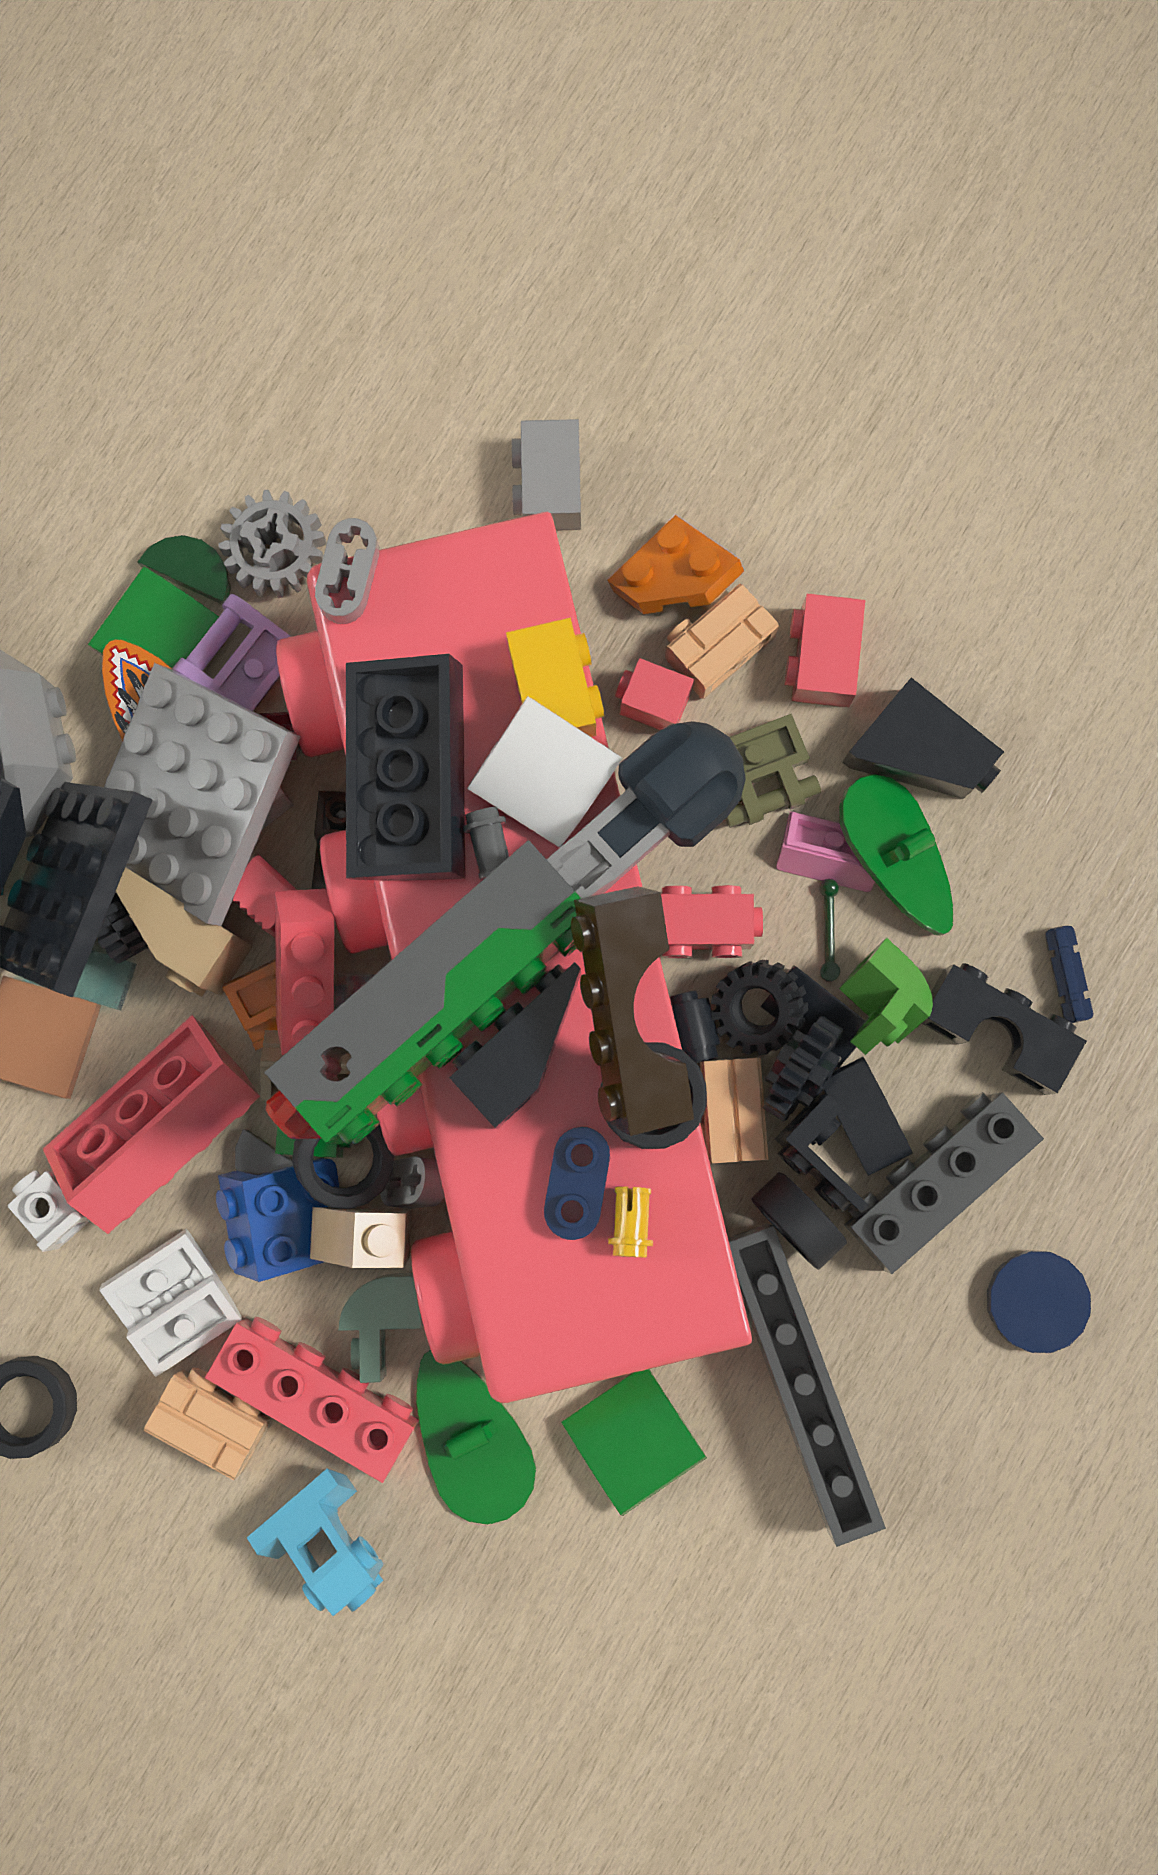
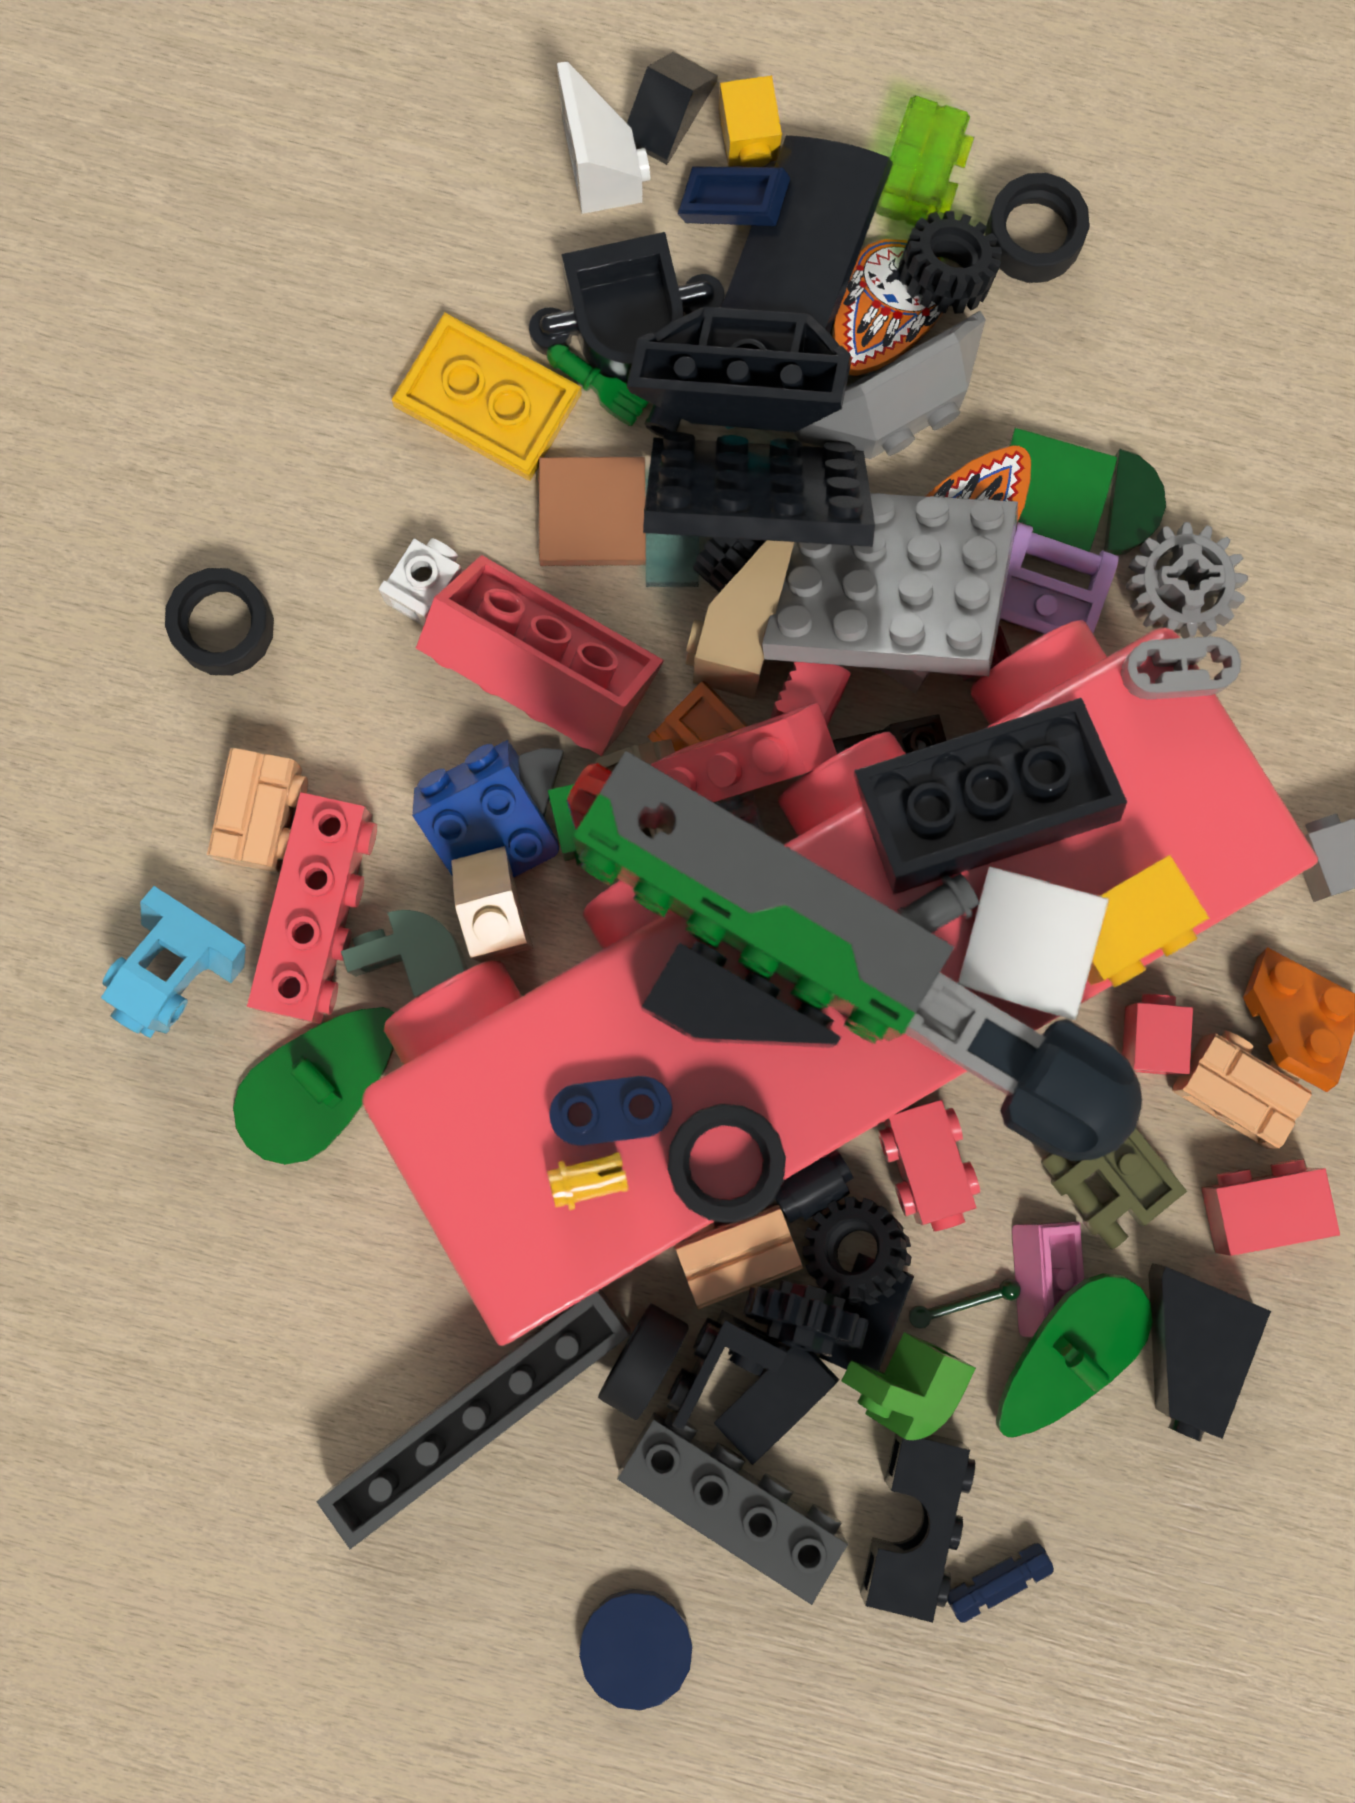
camera: 65 degrees right, 0 degrees up
(171, 1302) = (365, 734): white slope -> none
(348, 1197) = (525, 879): black tyre -> none
(413, 1184) = (559, 940): light grey beam -> none
(618, 942) = (876, 1075): dark brown arch -> none
(633, 1440) = (364, 1254): green slope -> none

